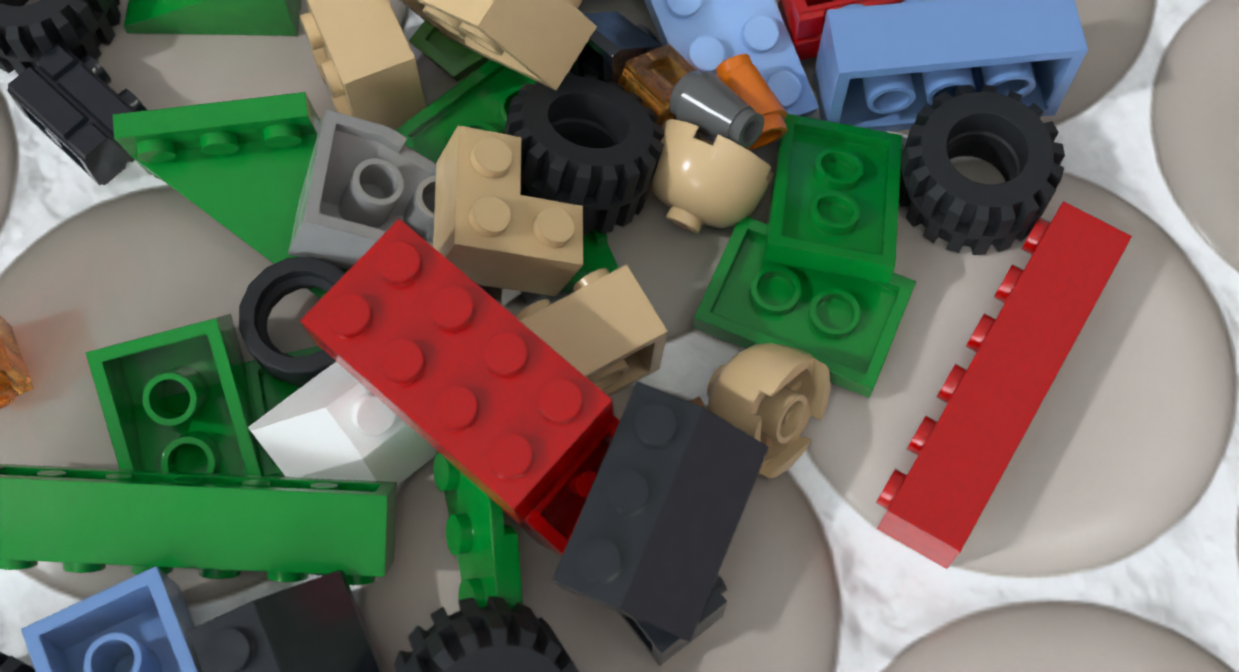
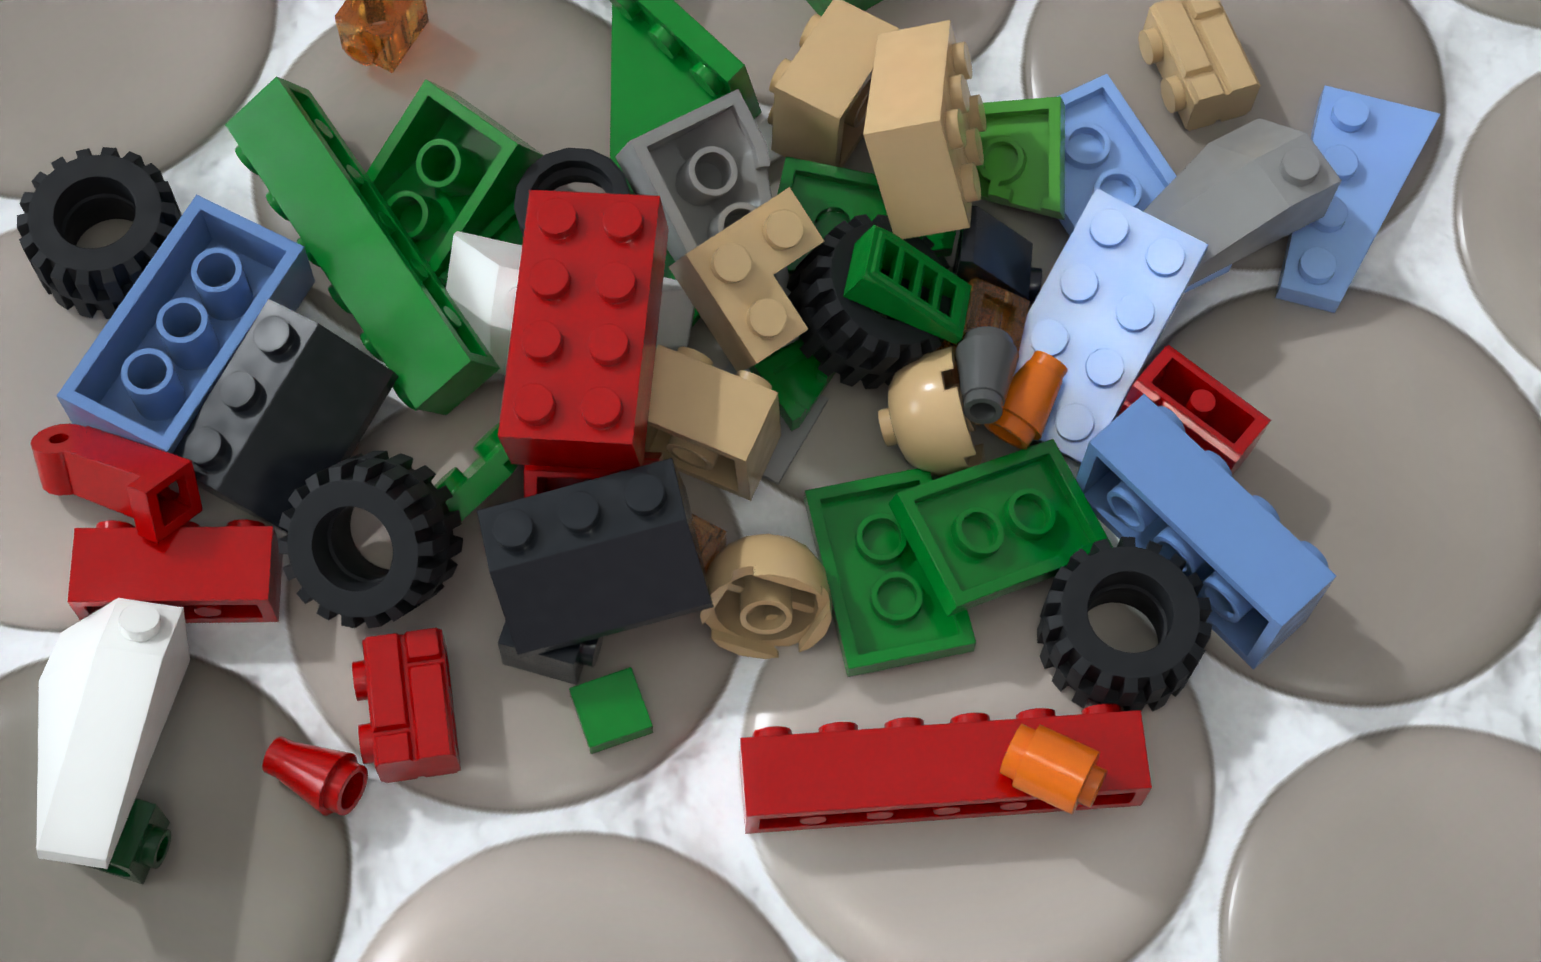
camera: 50 degrees right, 0 degrees up
(601, 109) = (870, 287): none -> green slope
(771, 603) = (611, 710): none -> green tile
(1084, 289) = (1053, 768): none -> orange brick

